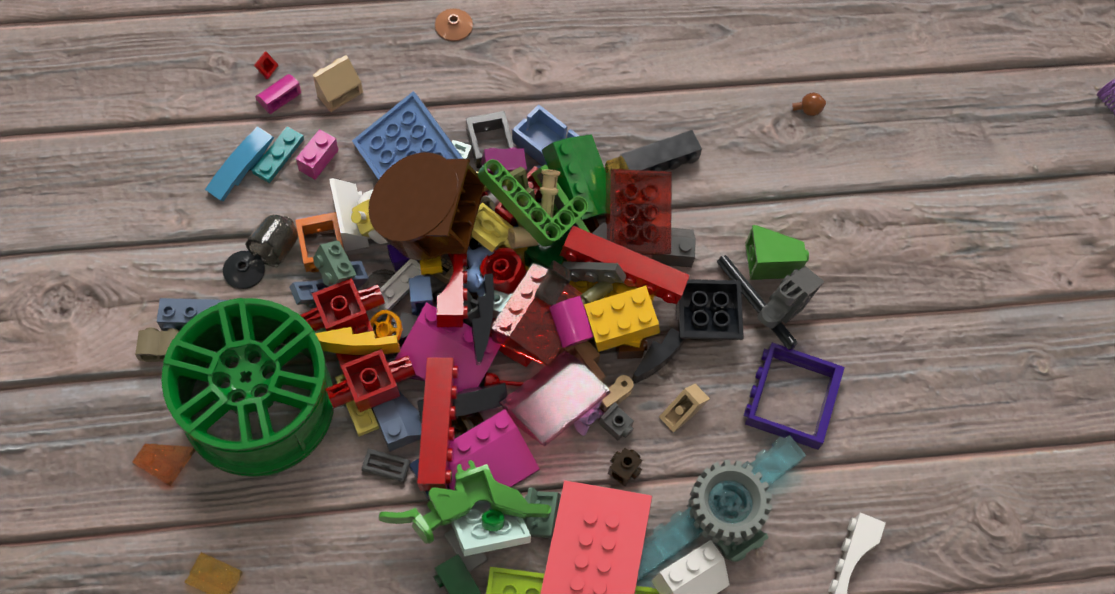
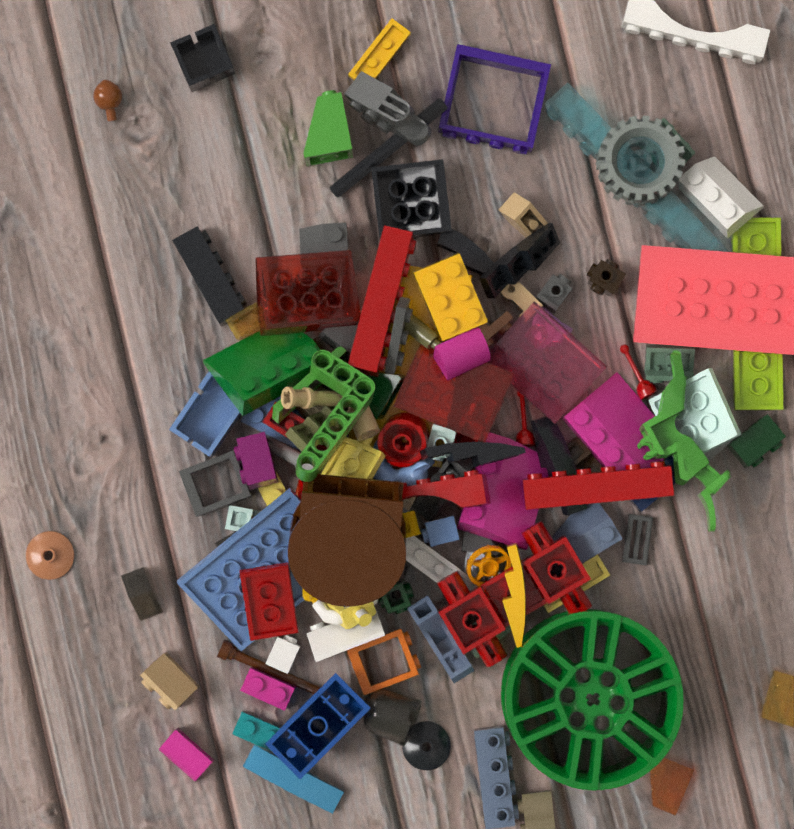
camera: 90 degrees left, 20 degrees up
(266, 65) = (149, 777): red slope -> none
(275, 173) = (317, 726): none -> blue brick
(333, 263) = (423, 636): sand green bracket -> none
(342, 168) = (283, 653): none -> white brick
(353, 131) = (229, 652): none -> reddish brown piece
(373, 256) = (398, 604): none -> dark green brick
(380, 155) = (269, 601): none -> red tile
(412, 77) = (142, 593): none -> clear smoke slope
(492, 520) = (695, 411): green tile -> none
(523, 488) = (645, 387): none -> red hinge
(553, 283) = (415, 377): clear smoke slope -> none
(649, 392) = (518, 260): none -> black slope
(837, 169) = (204, 59): none -> black piece
(839, 310) = (381, 50): none -> yellow plate

